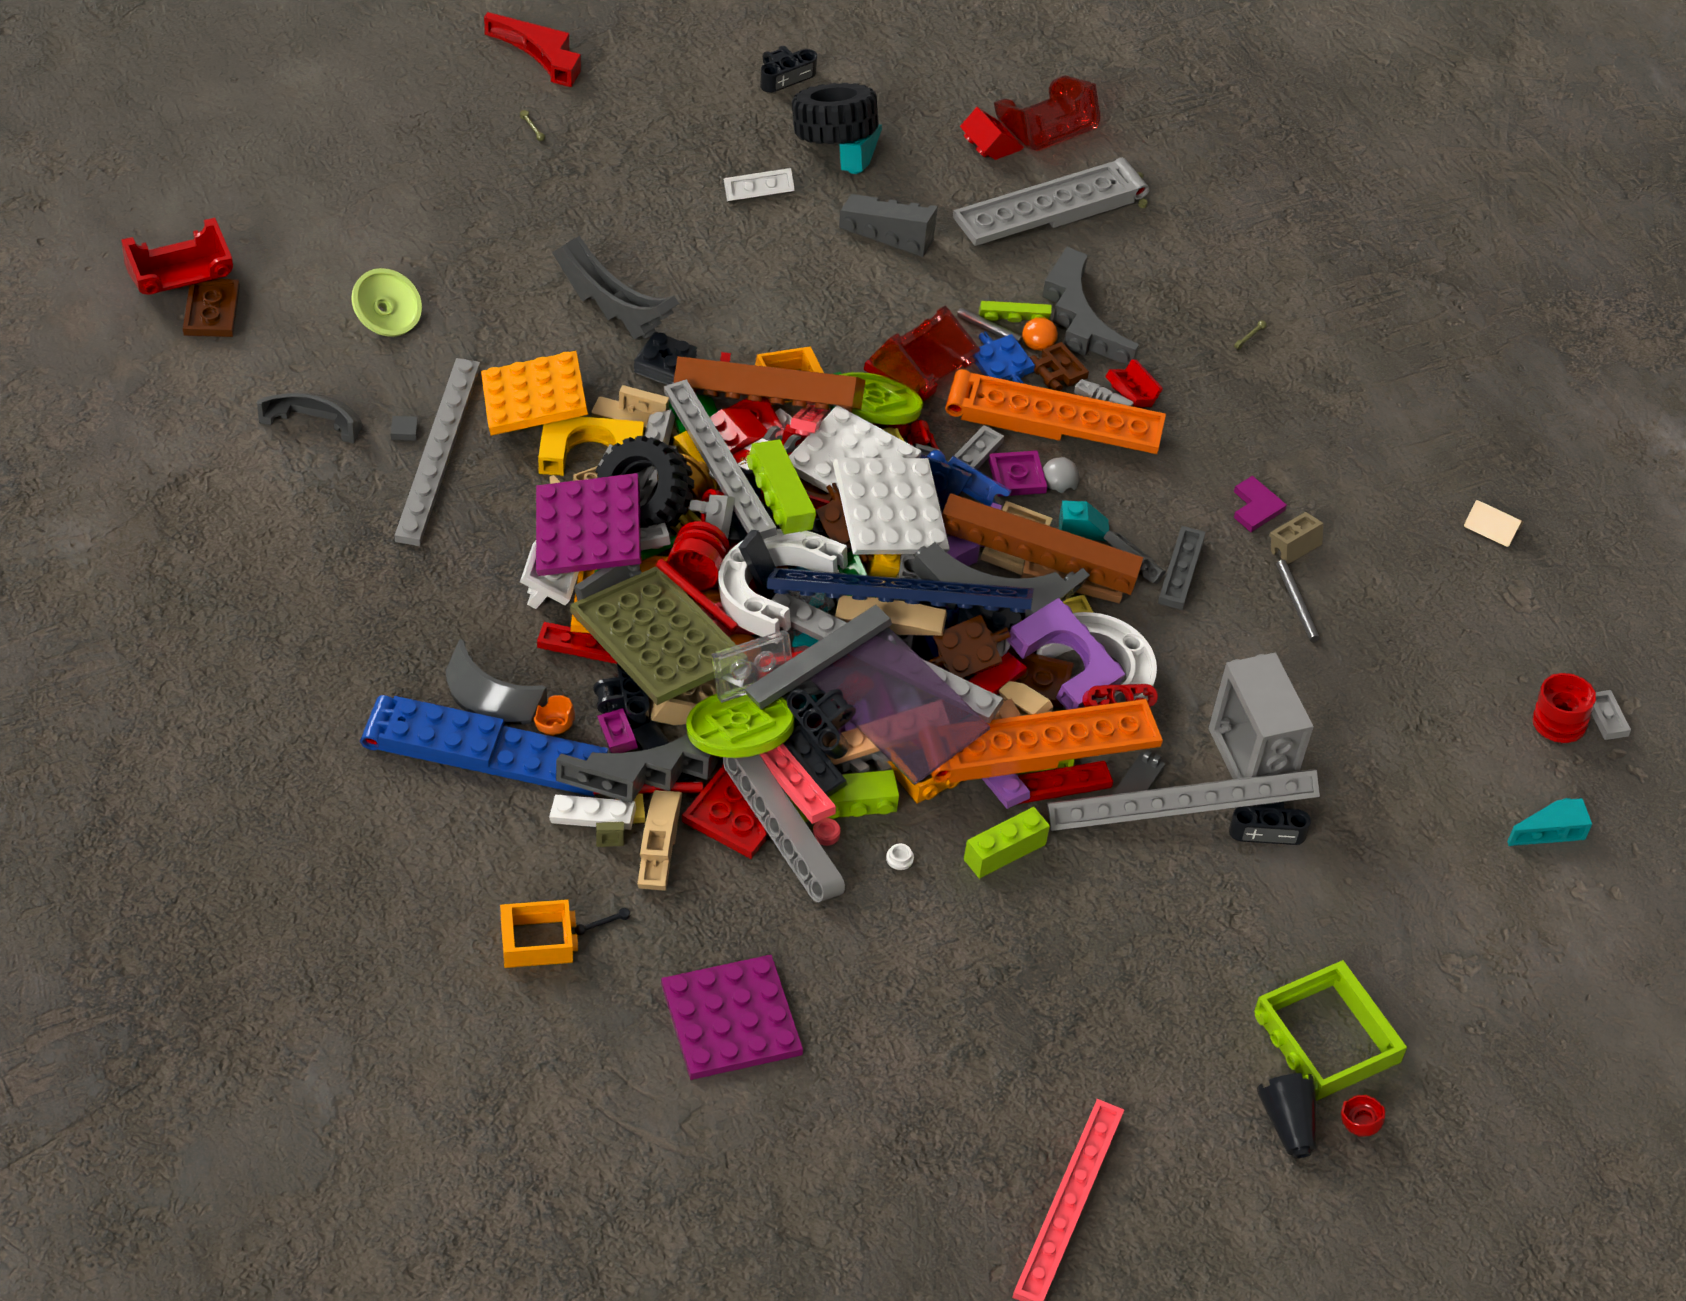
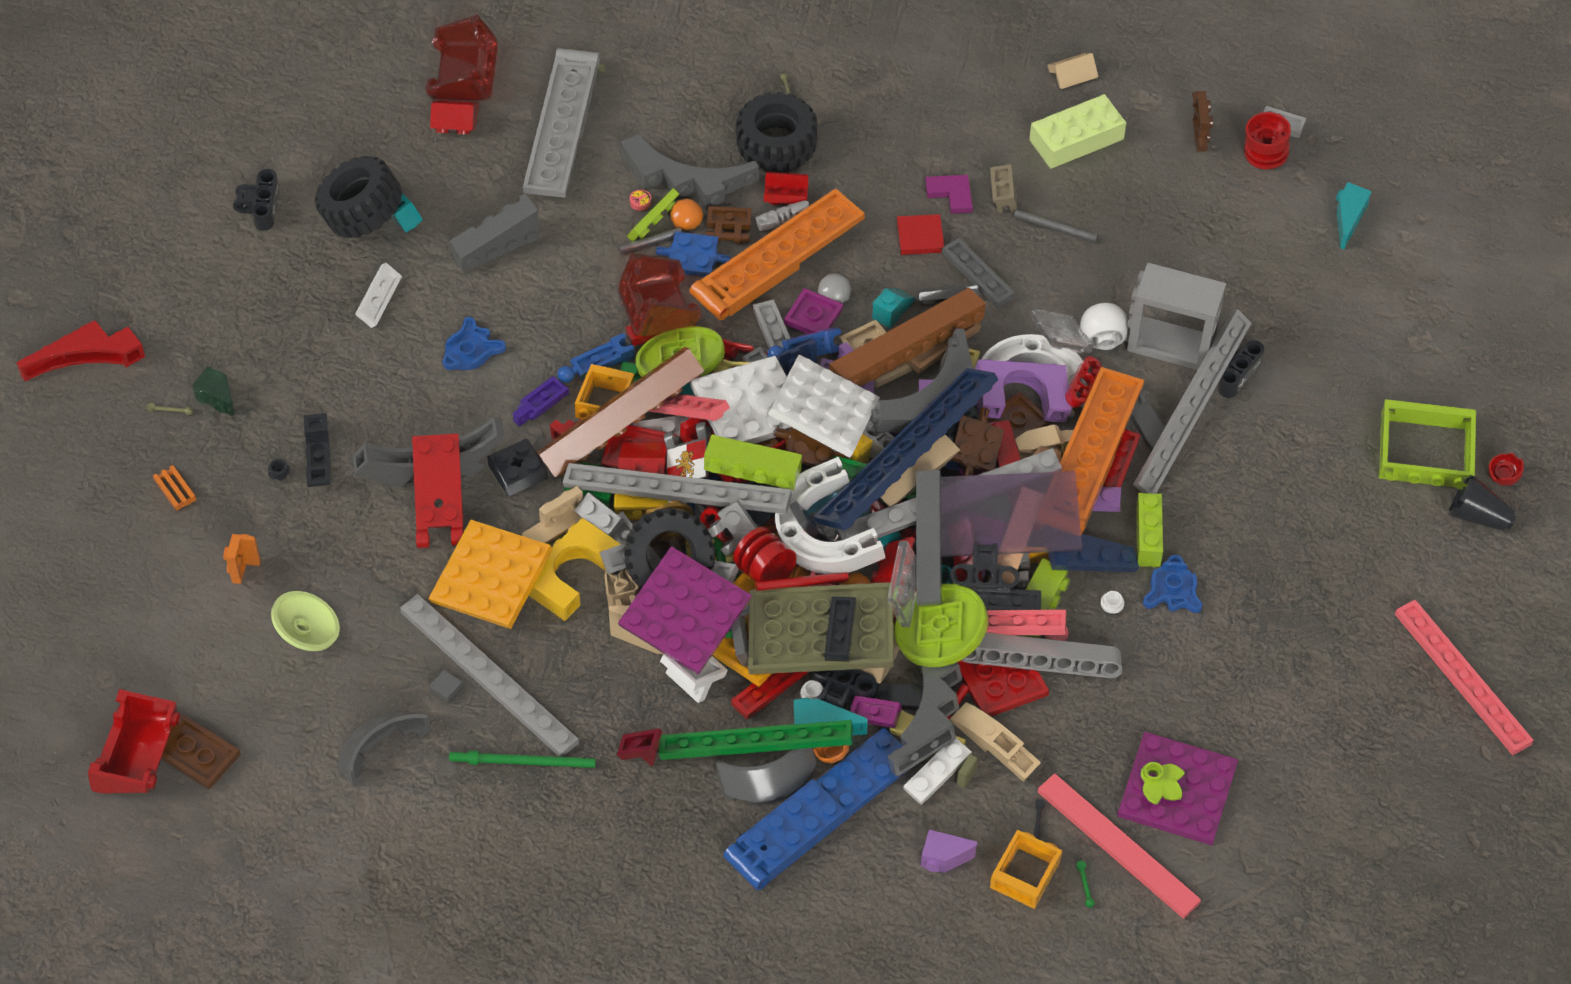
camera: 50 degrees left, 5 degrees up
(347, 484) = (473, 757): none -> green bar
(414, 231) = (241, 552): none -> orange bracket
(445, 587) = (640, 744): none -> dark red slope
(446, 176) = (166, 475): none -> orange tile
(506, 861) = (946, 851): none -> medium lavender slope
(508, 655) = (756, 739): none -> green plate
(529, 216) = (278, 465): none -> black plate
(571, 138) = (214, 390): none -> clear green slope
(577, 685) = (815, 710): none -> teal slope
(580, 981) = (1081, 866): none -> green hinge
(585, 221) = (317, 450): none -> black slope
(593, 306) = (437, 477): none -> red hinge
(603, 672) = (812, 690): none -> white plate
(625, 1001) = (1119, 846): none -> coral tile
(662, 643) = (840, 629): none -> black tile
(716, 995) = (1163, 785): none -> lime plate
(747, 338) = (540, 400): none -> dark purple hinge
(763, 269) = (470, 347): none -> blue tile
(828, 353) = (604, 355): none -> blue plate
(934, 809) = (1096, 556): none -> dark blue wing
(962, 898) = (1174, 586): none -> blue tile
(1026, 295) = (640, 200): none -> tile
(1166, 655) = (1061, 331): none -> clear plate
(1185, 505) = (920, 234): none -> red tile
(1192, 324) = (781, 112): none -> black tyre
(1201, 685) = (1105, 325): none -> white wheel
(1421, 558) = (1077, 131): none -> yellowish green brick
(1529, 644) = (1201, 120): none -> reddish brown plate

